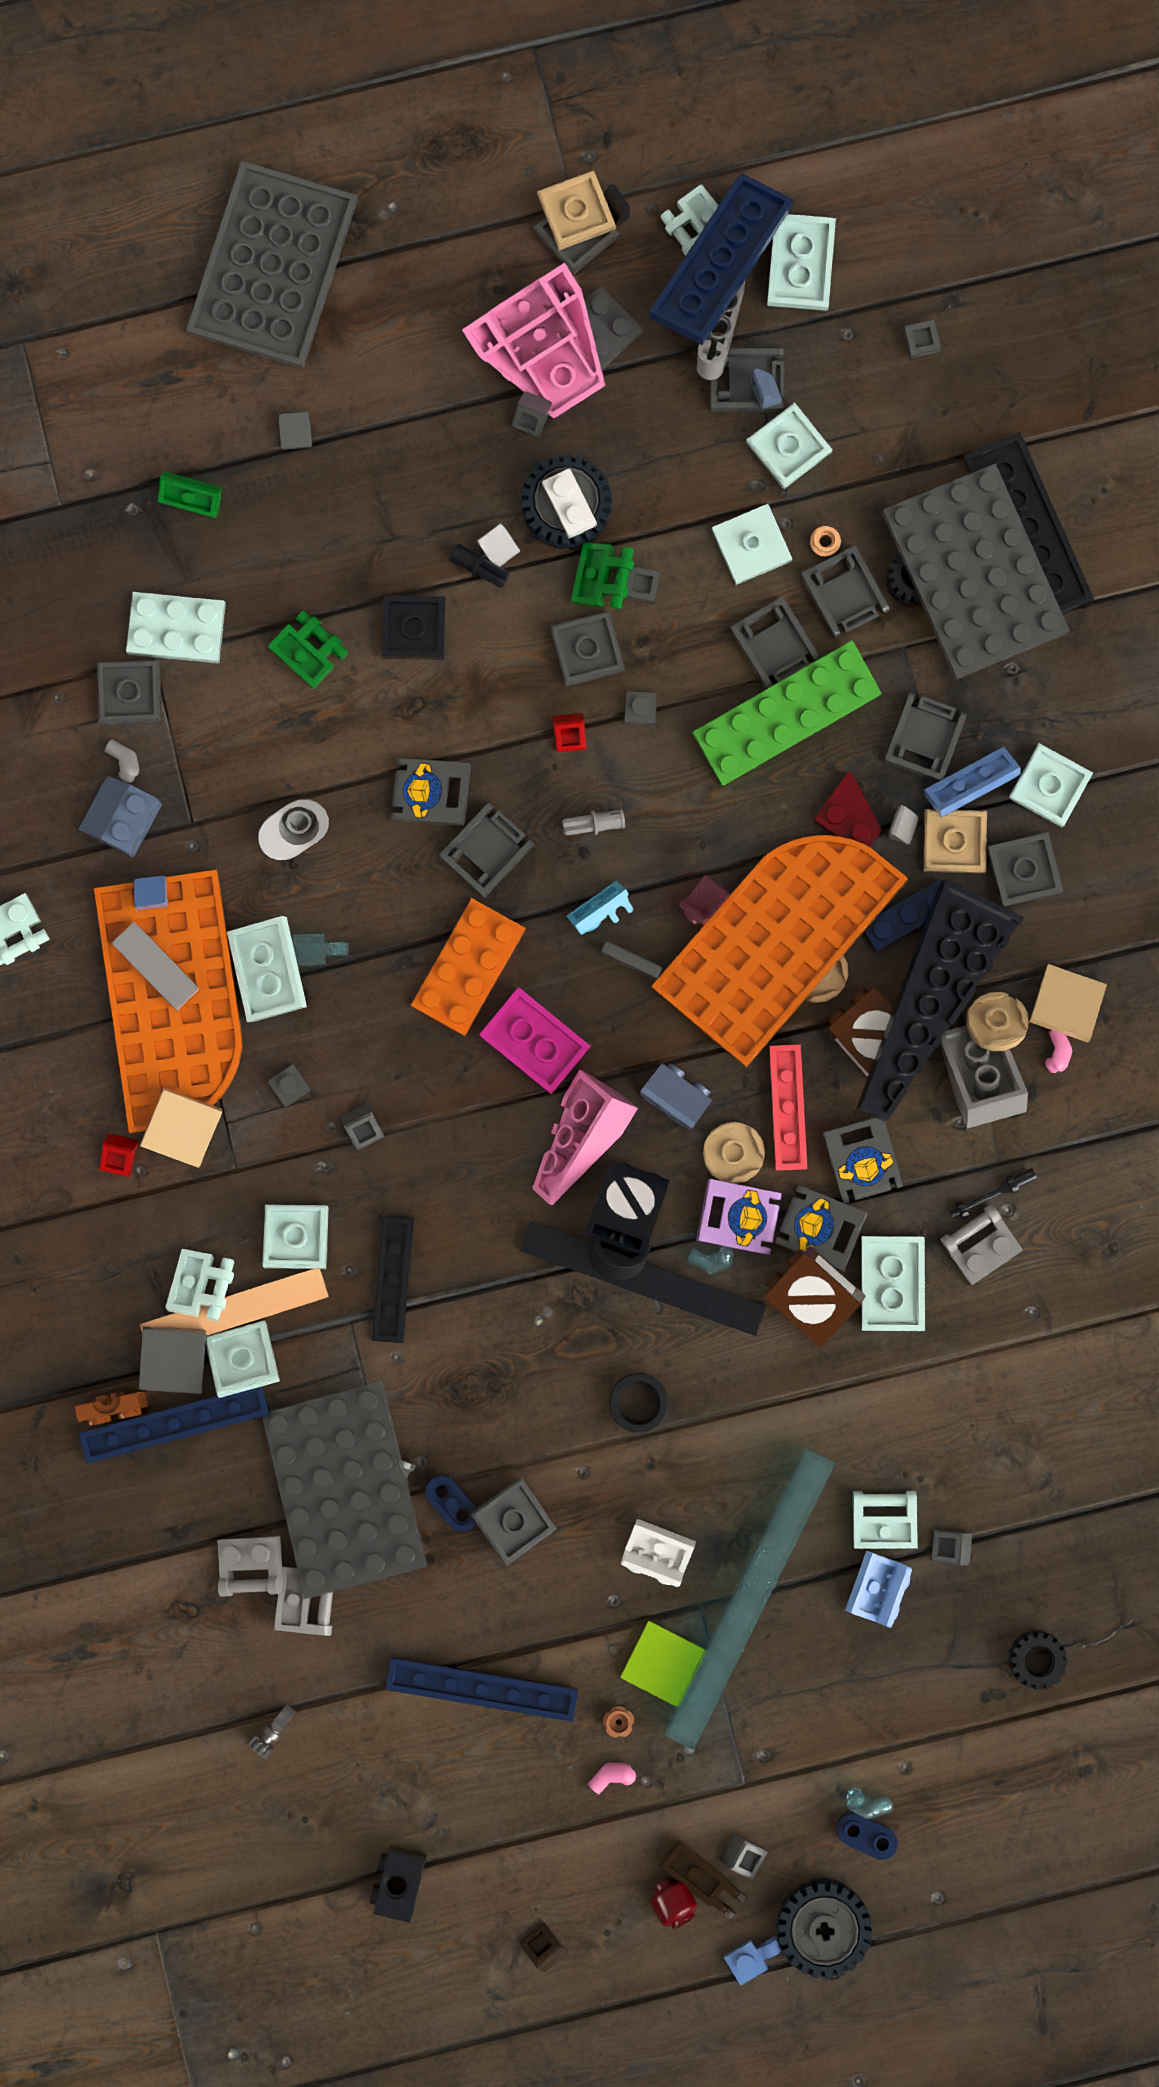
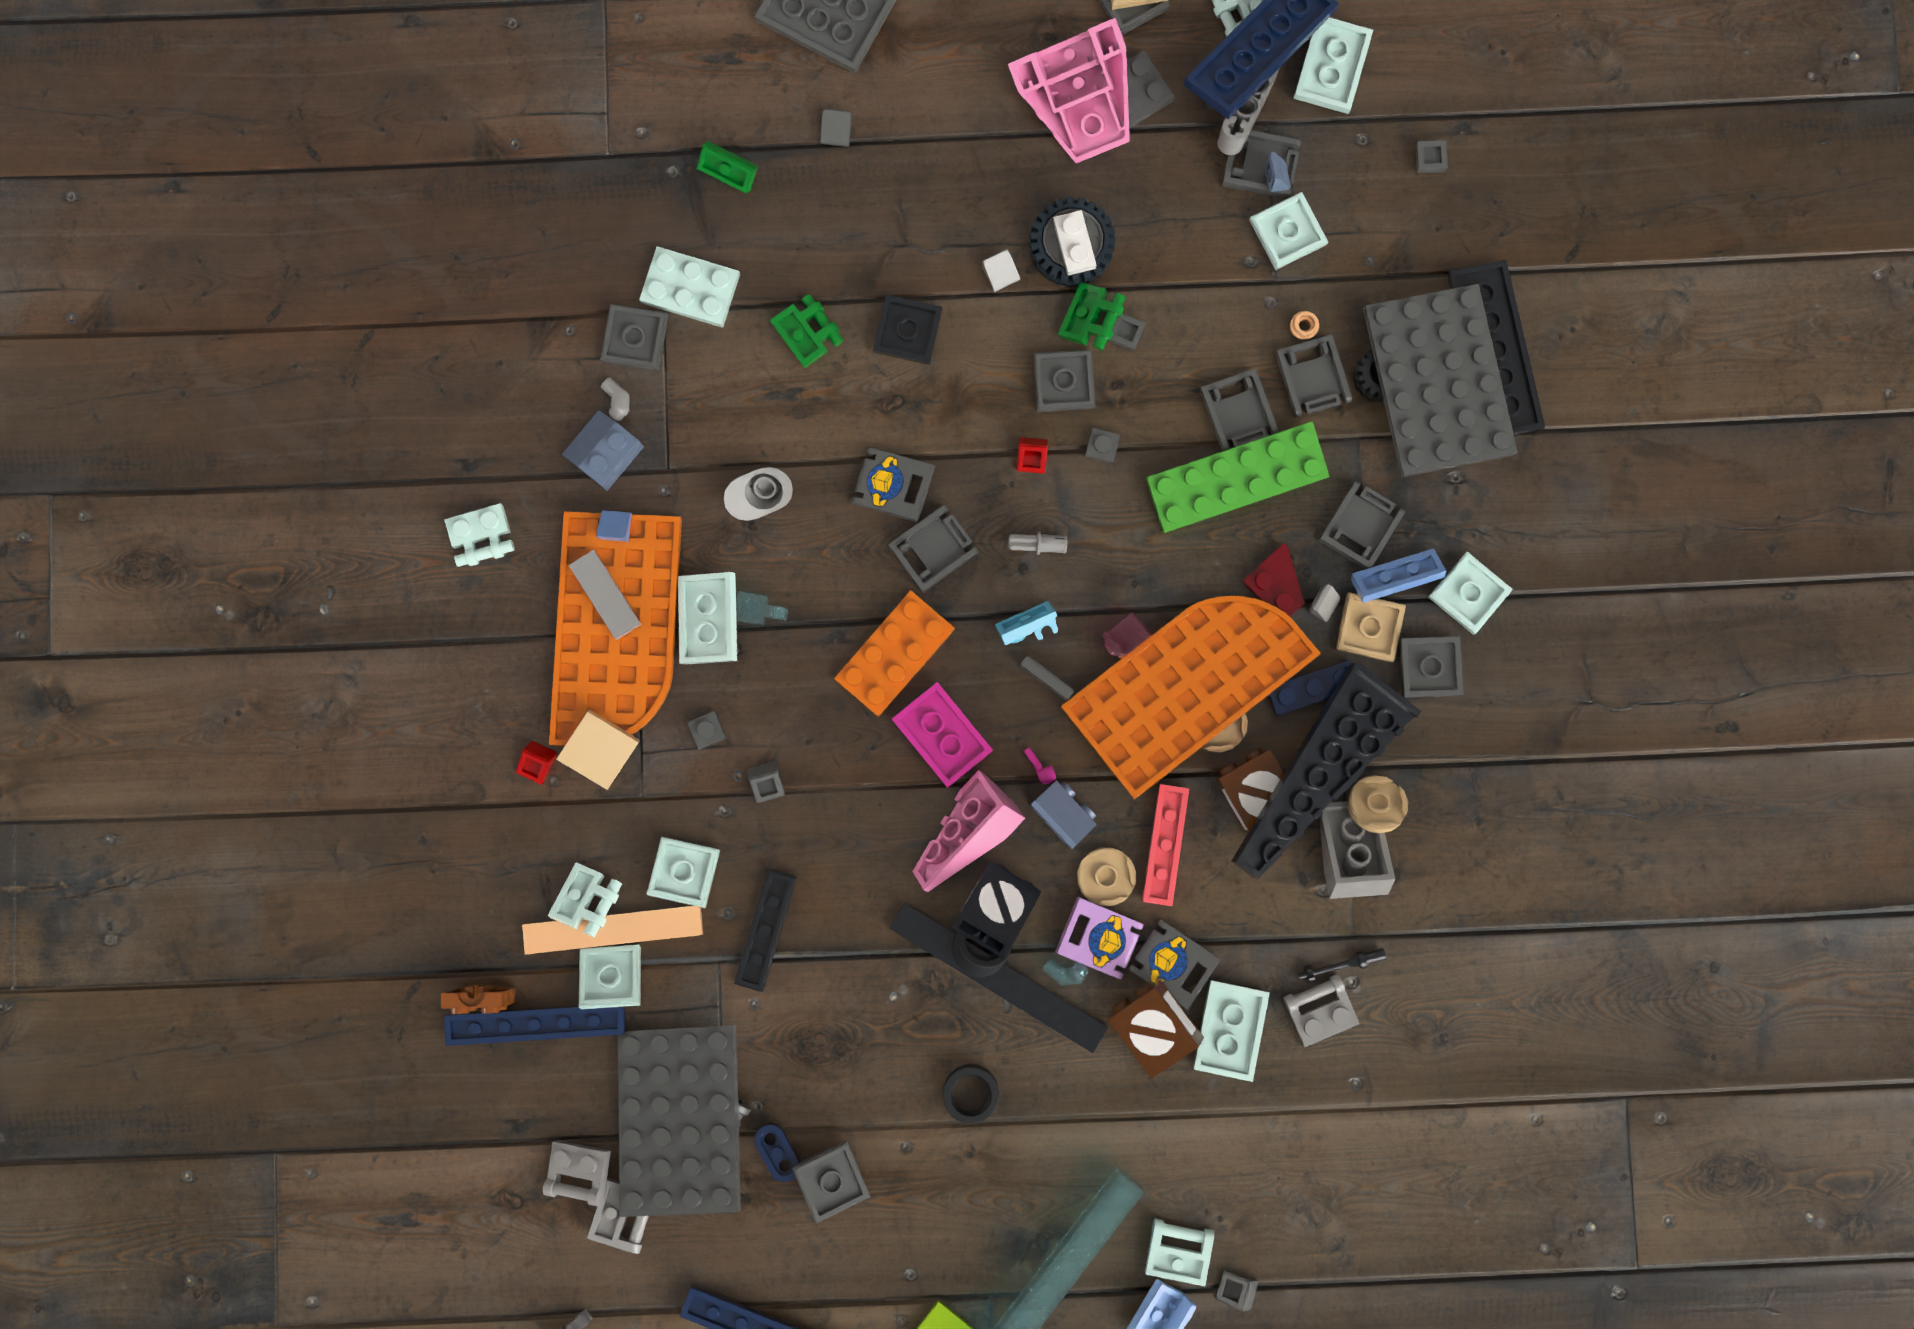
camera: 15 degrees right, 0 degrees up
(172, 1360) = (545, 964): dark grey tile -> none
(479, 565) = (979, 285): black axle -> none
(531, 414) = (1056, 155): dark grey slope -> none
(649, 1061) = (1045, 775): none -> dark pink hand
(657, 1553) = (959, 1240): white bracket -> none
(751, 544) = (1235, 314): light aqua plate -> none
(862, 1164) = (1225, 913): dark grey container -> none
(1061, 1054) = (1432, 845): bright pink arm -> none
(1068, 1003) = (1447, 800): tan tile -> none

